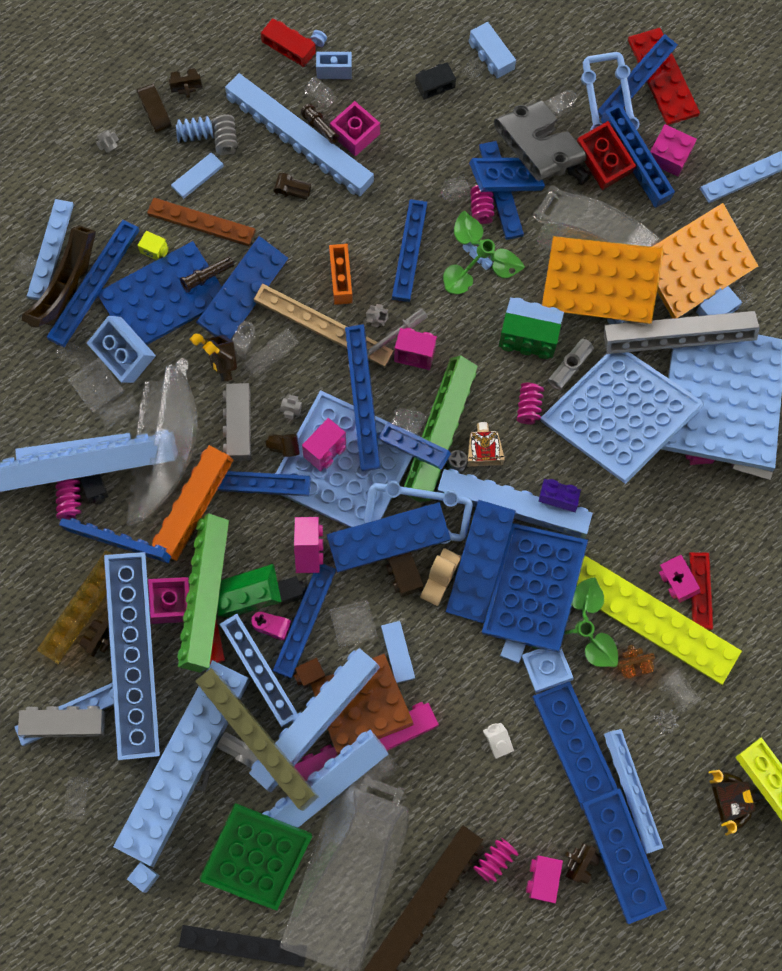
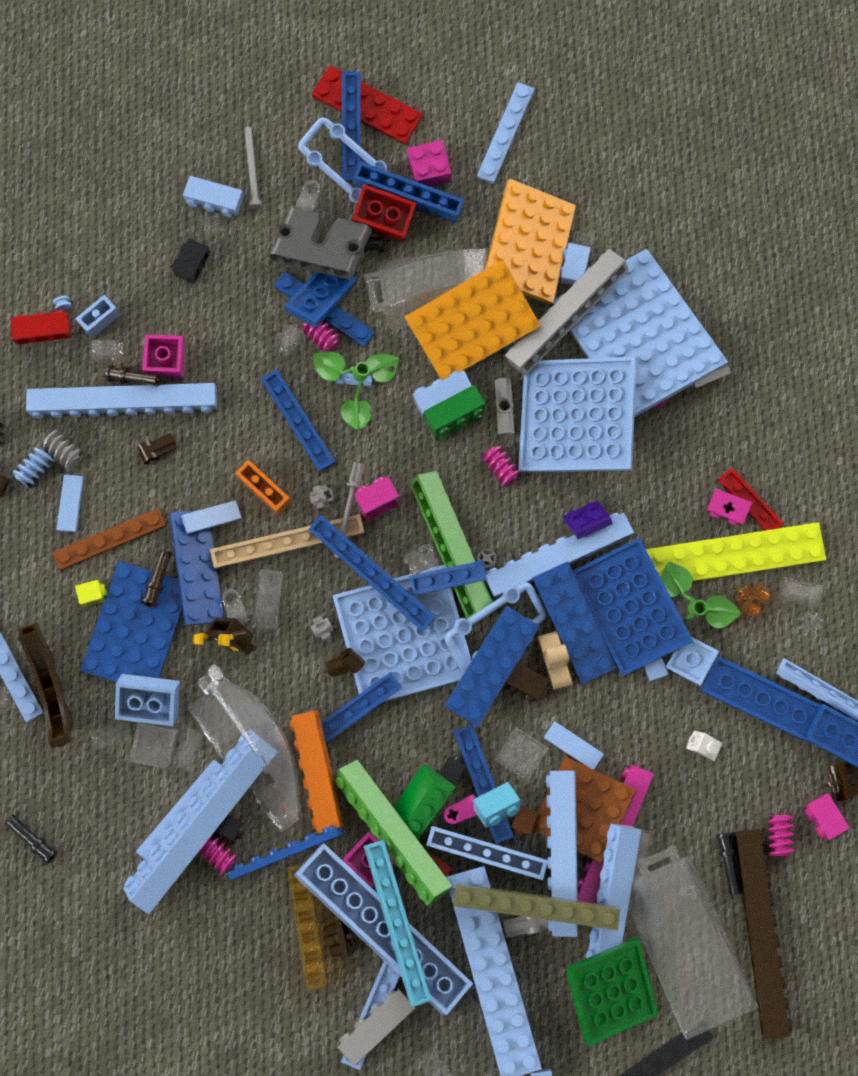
camera: 35 degrees left, 5 degrees up
(93, 283) = (71, 665): blue plate -> none
(143, 659) = (397, 923): none -> medium azure tile
(237, 421) = (288, 672): light grey brick -> none
(284, 263) = (211, 517): none -> light blue tile
(298, 640) = (496, 805): none -> medium azure brick
(308, 544) = (437, 725): dark pink brick -> none
(324, 445) = (379, 637): dark pink brick -> none
(442, 837) = (728, 853): none -> black pin
(484, 447) = (497, 530): torso -> none
(519, 78) = (255, 203): none -> light grey bar

